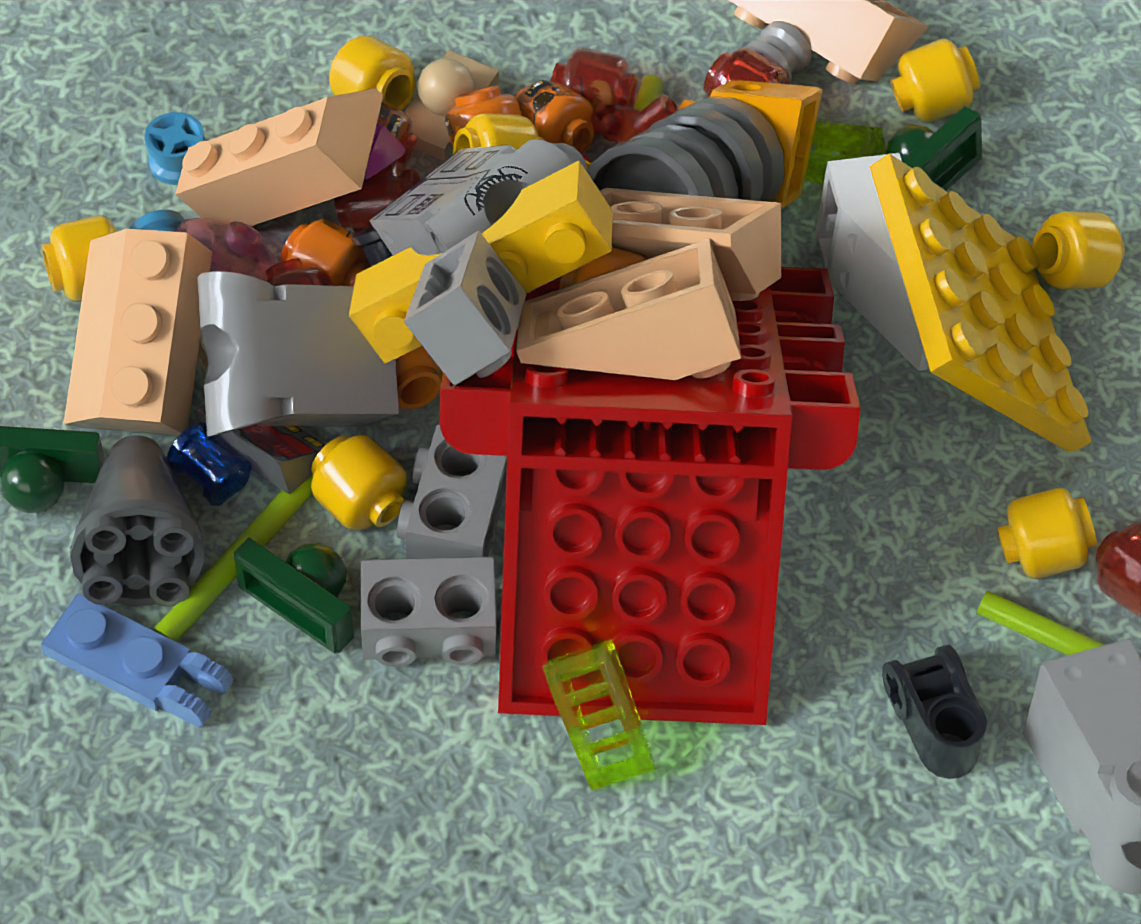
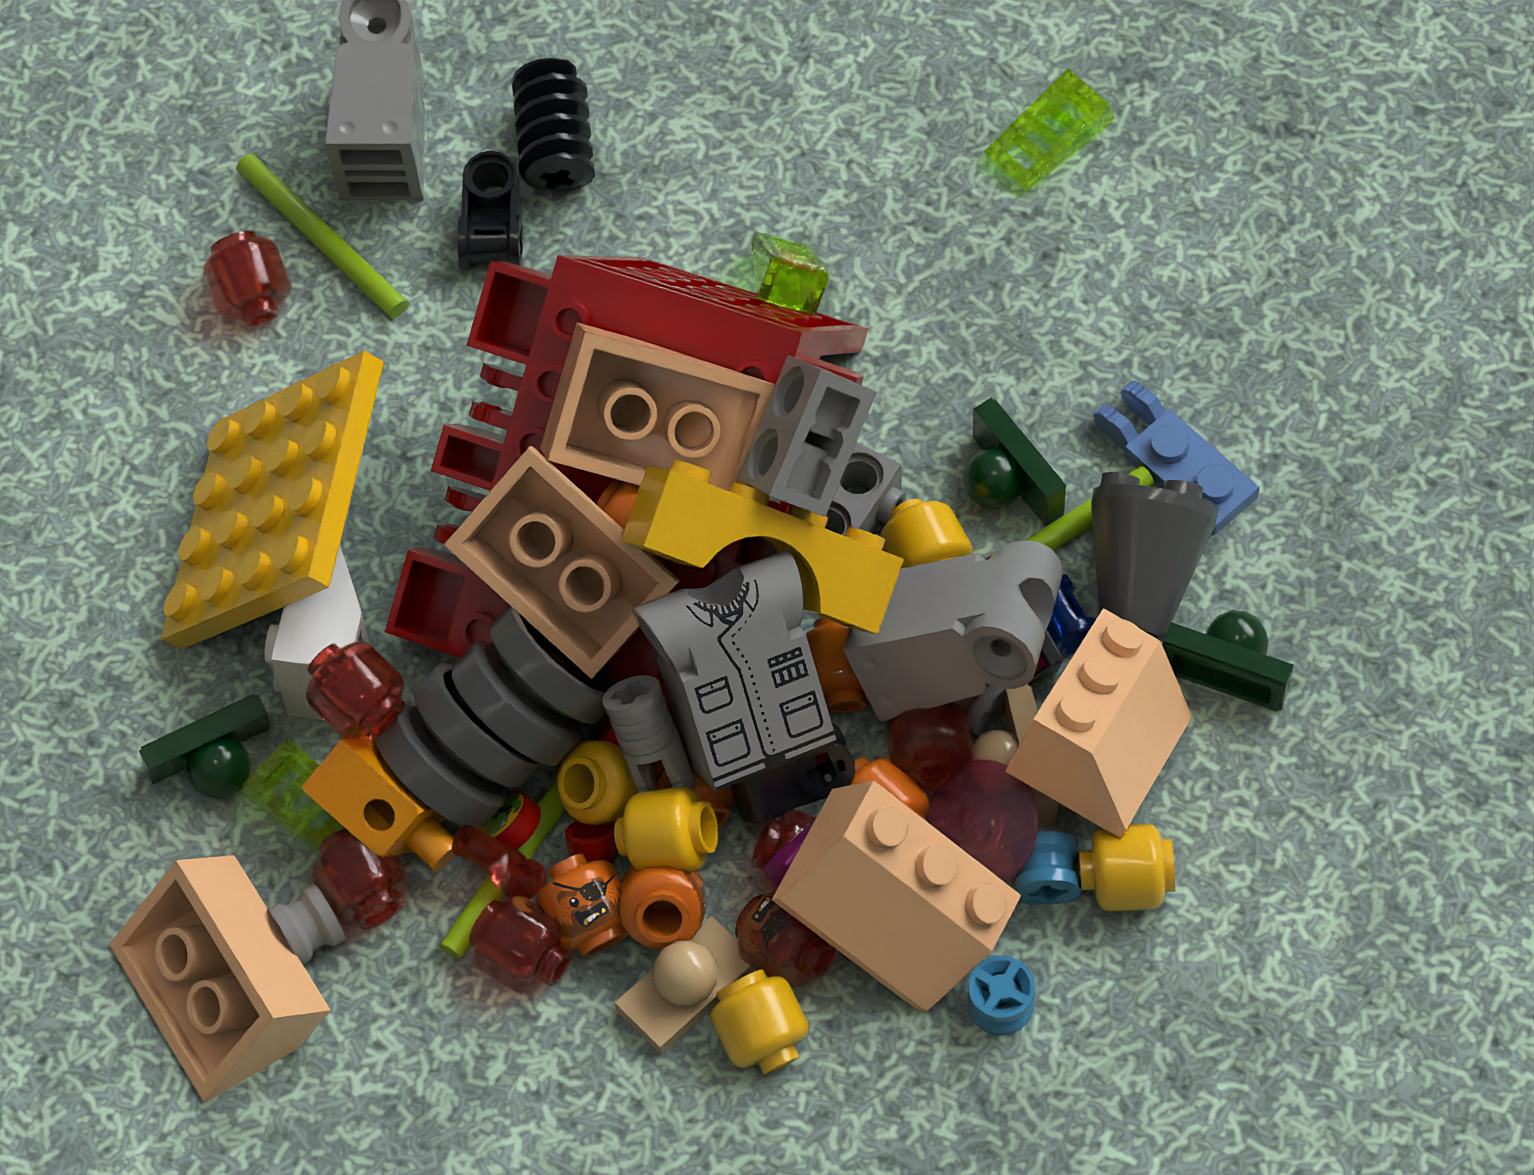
camera: 155 degrees left, 5 degrees up
(428, 594) = (907, 398): light grey brick -> none
(808, 129) = (355, 690): none -> clear red head
(915, 817) = (552, 125): none -> black piece
(935, 80) = (148, 839): yellow head -> none
(1047, 533) = (312, 332): yellow head -> none
(1078, 250) = (118, 600): yellow head -> none

